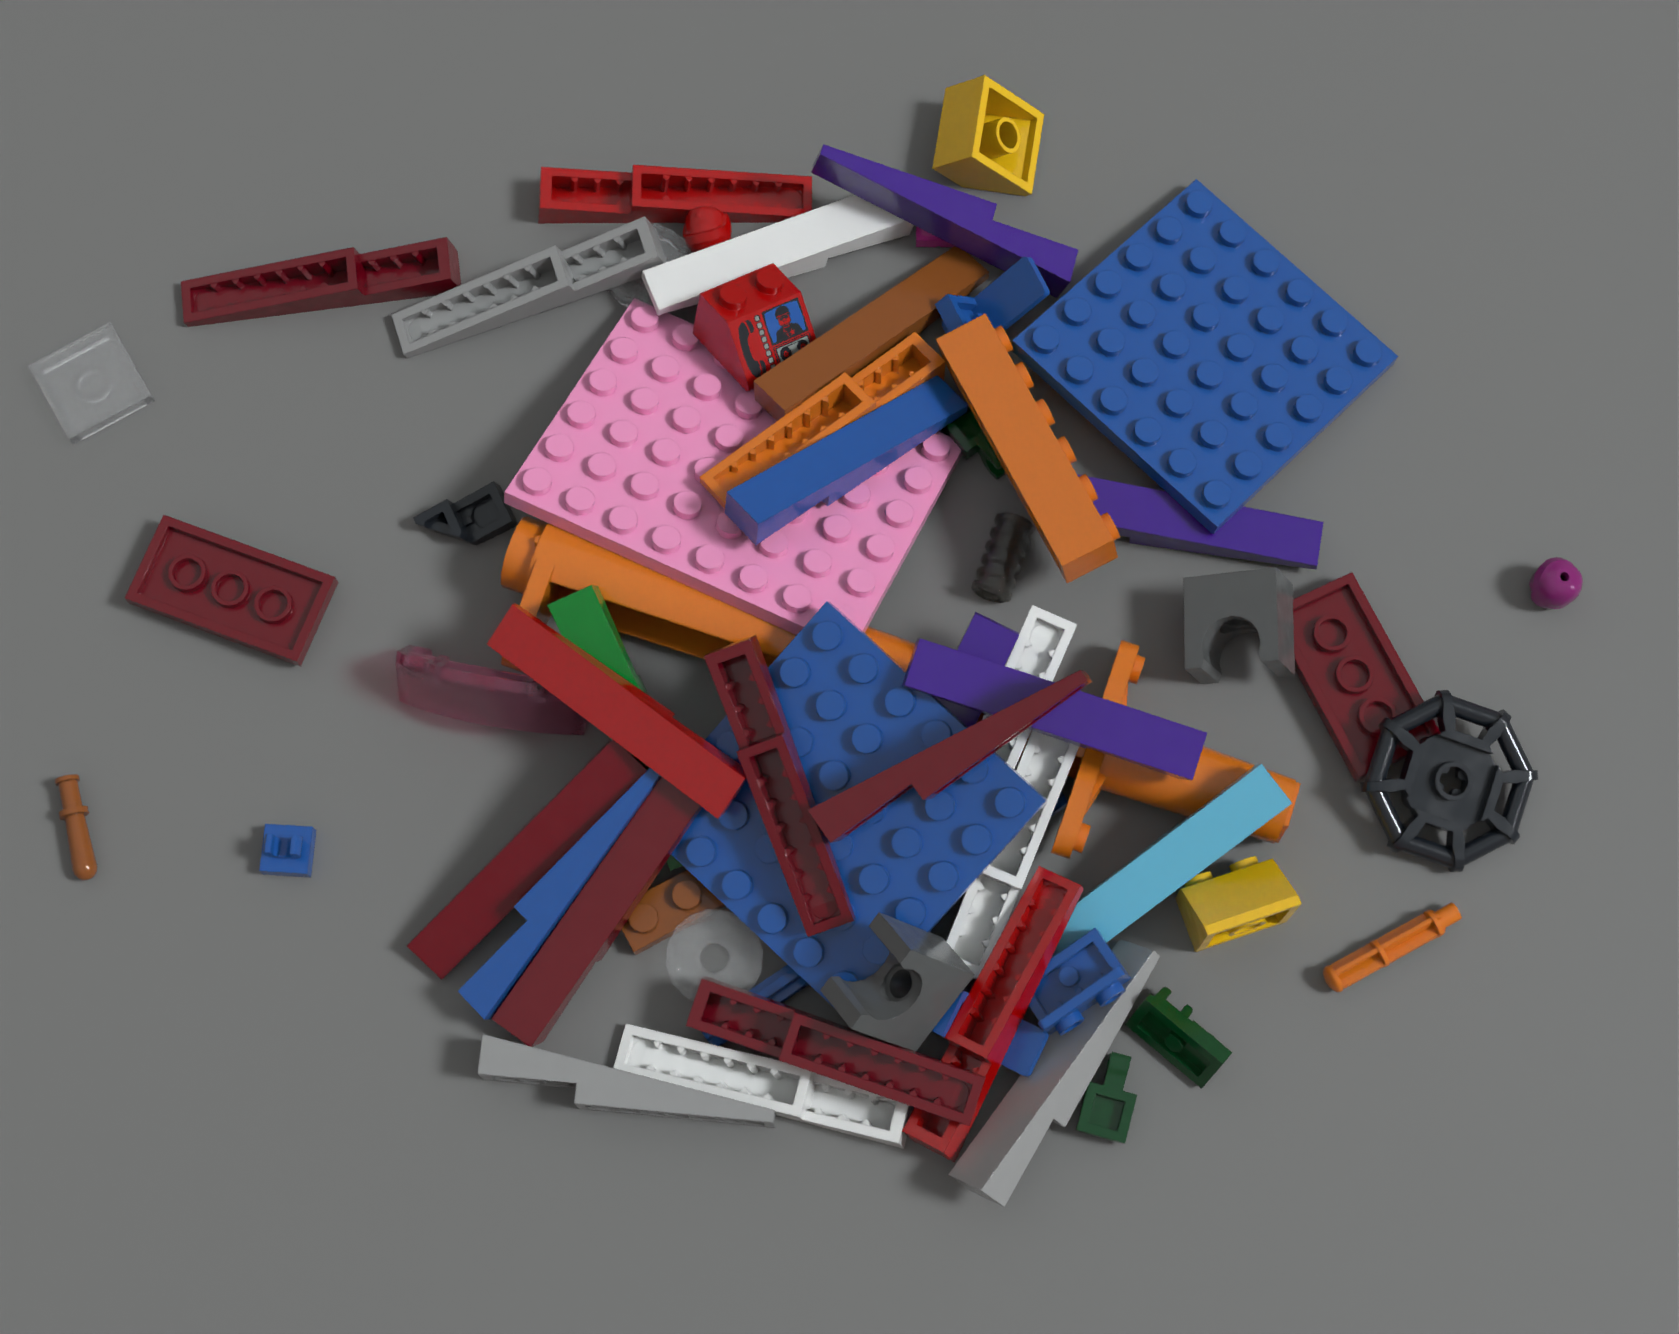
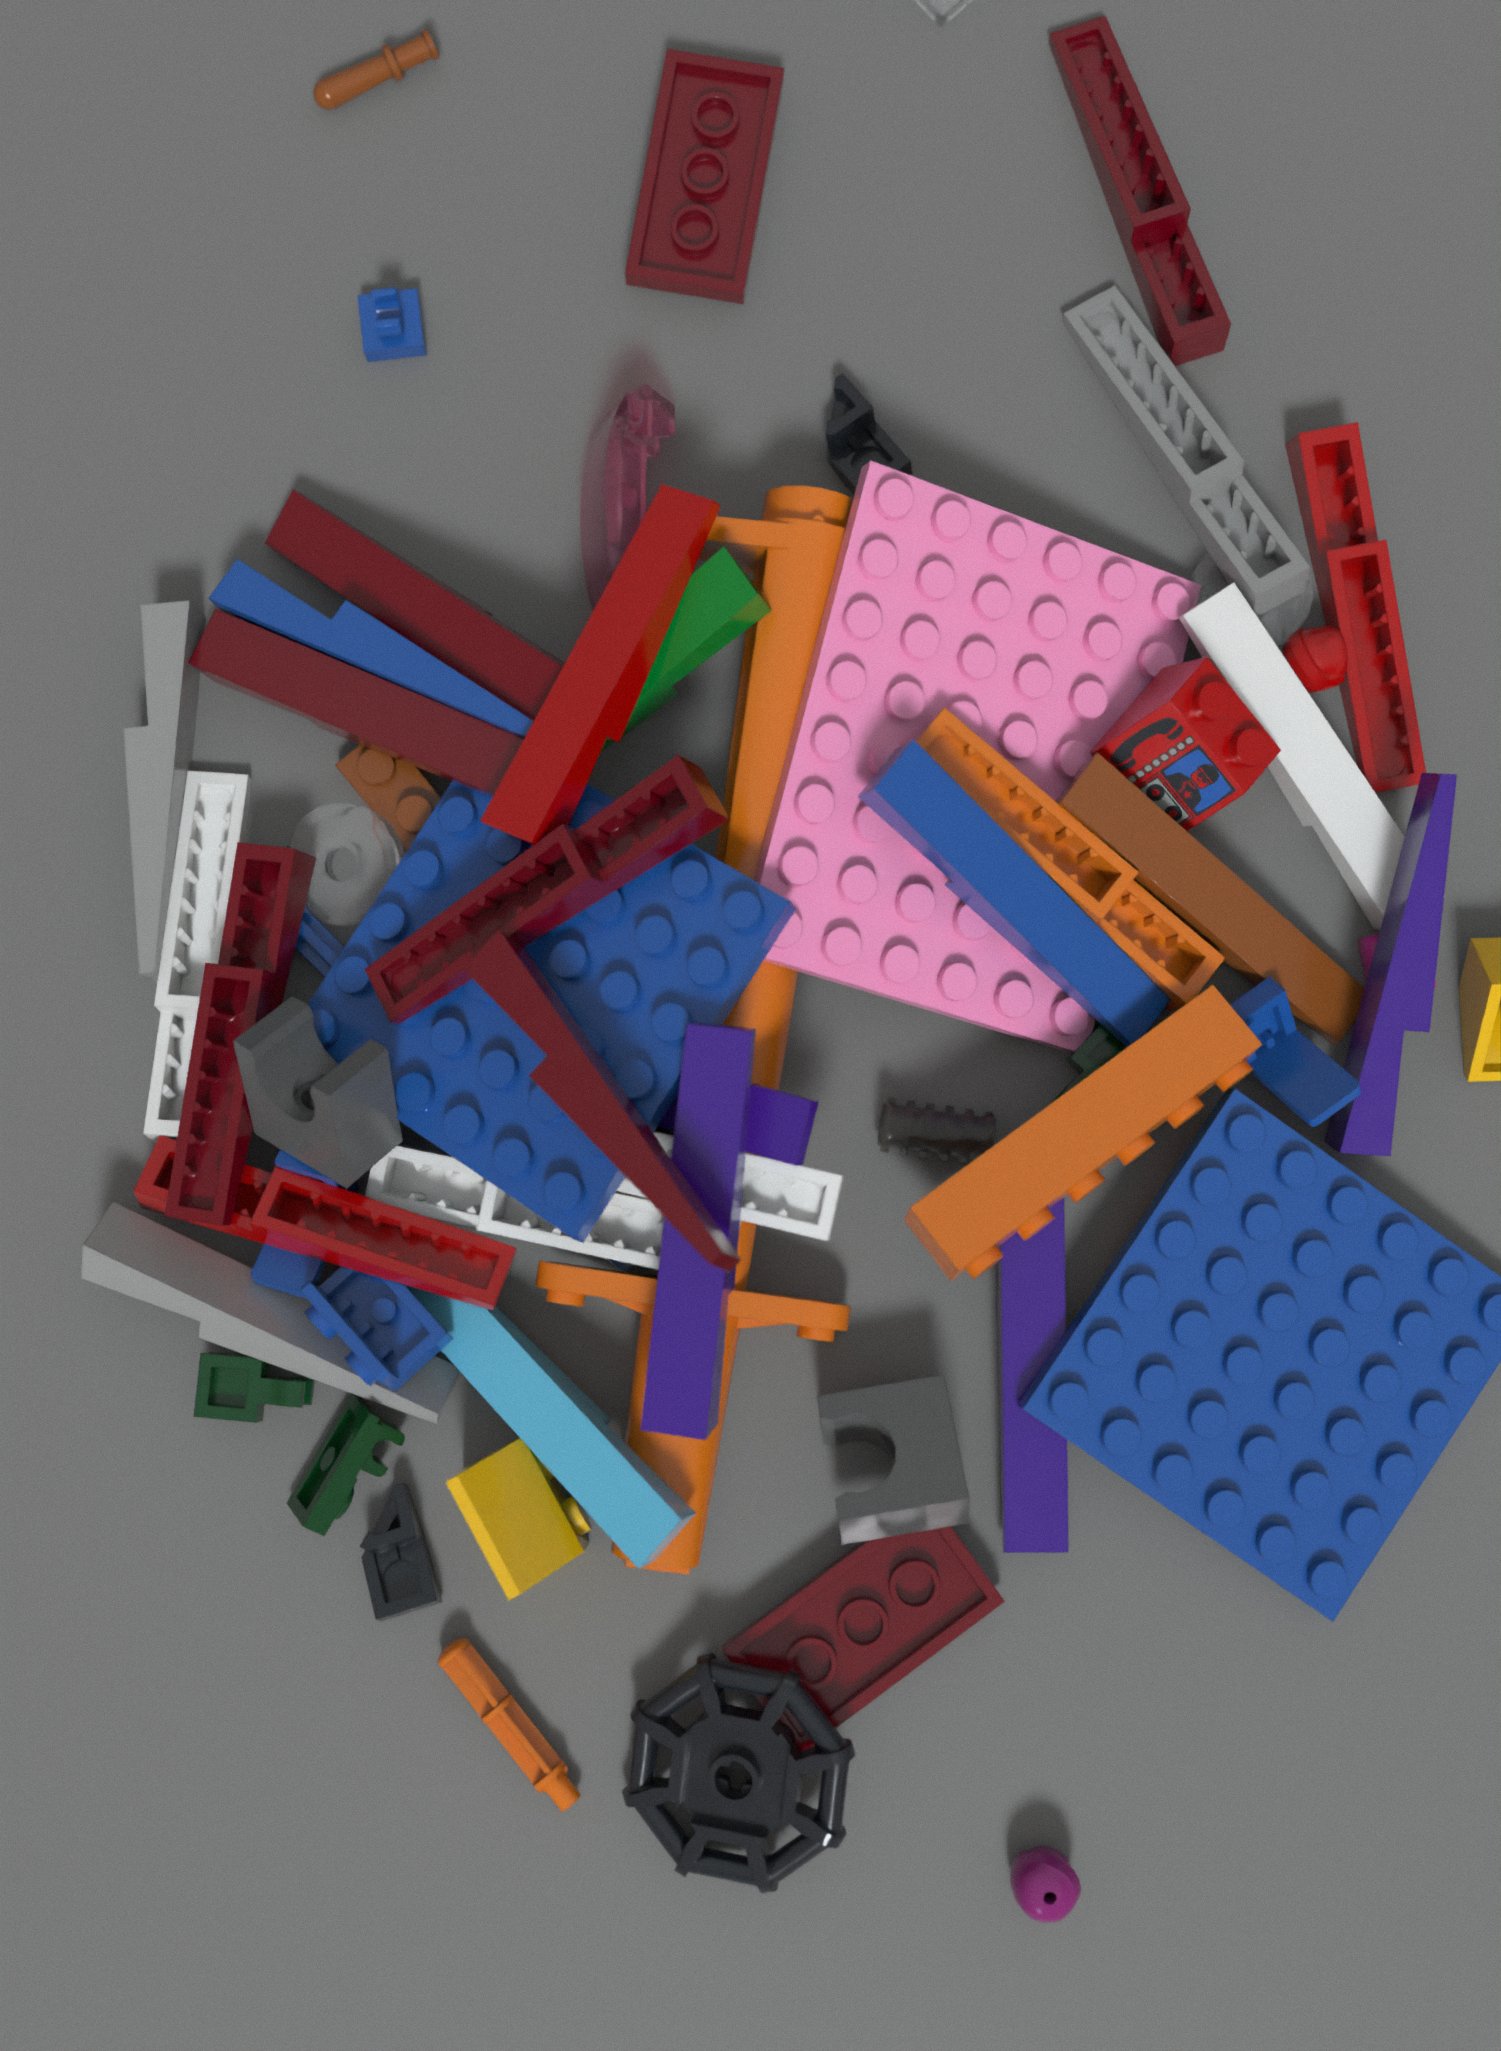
camera: 80 degrees right, 10 degrees up
(1258, 1010) = (399, 1560): none -> black slope

